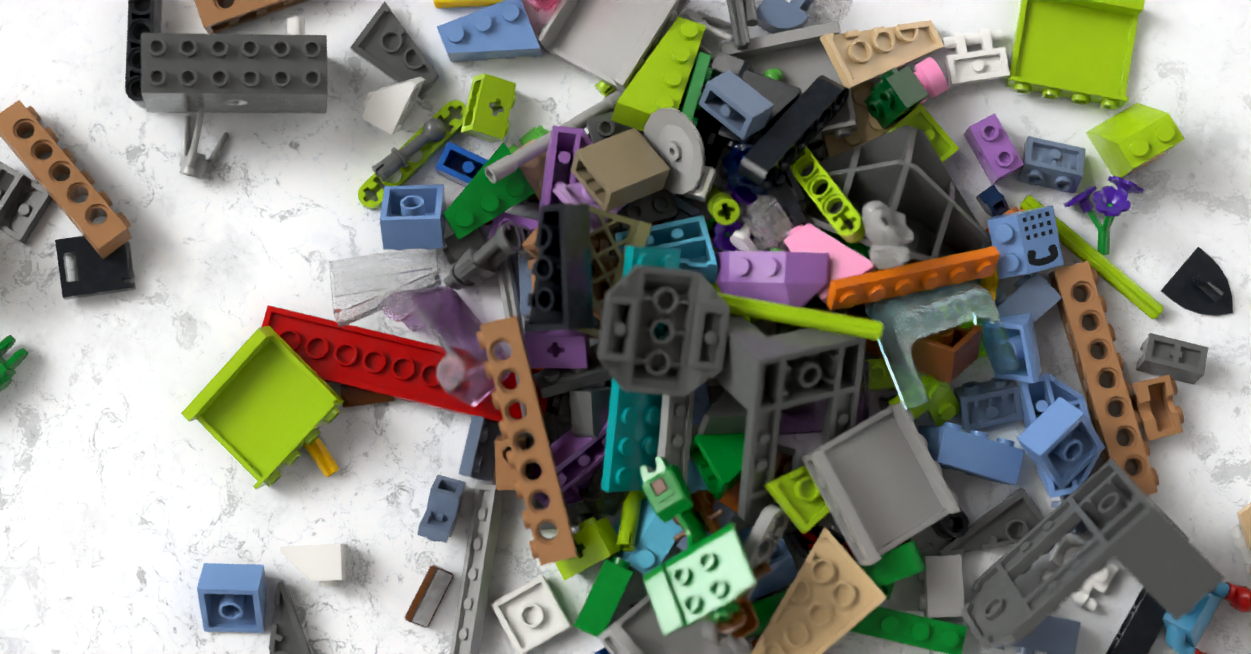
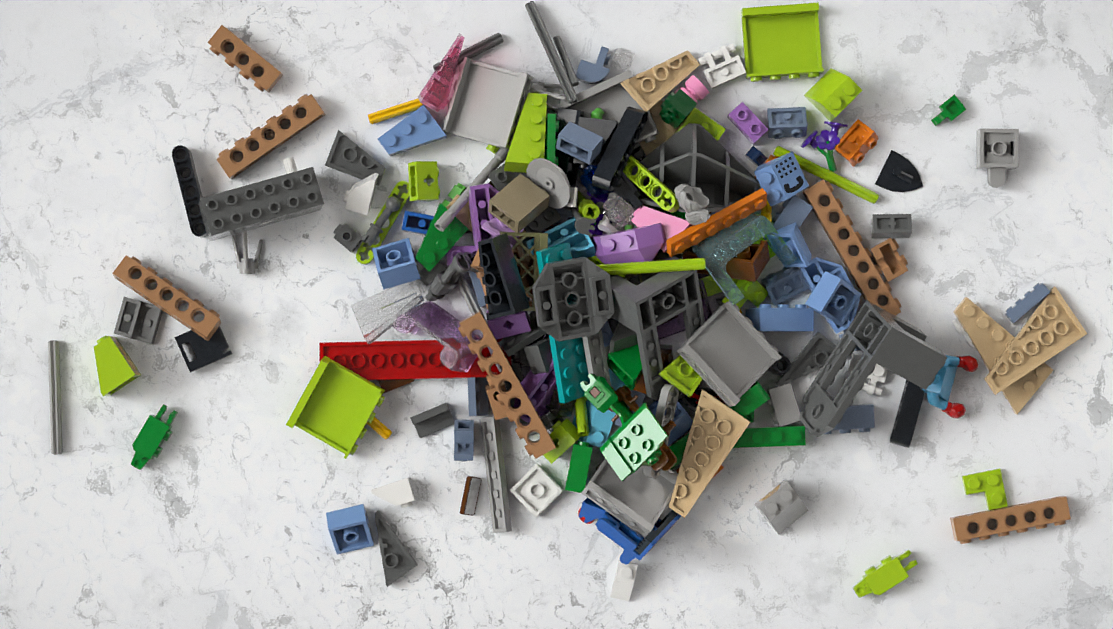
camera: 15 degrees left, 5 degrees up
(361, 168) = (354, 240): none -> dark grey brick
(404, 466) = (433, 420): none -> dark grey panel
(709, 223) = (582, 224): none -> dark grey piece
(1149, 221) = (856, 142): none -> orange bracket

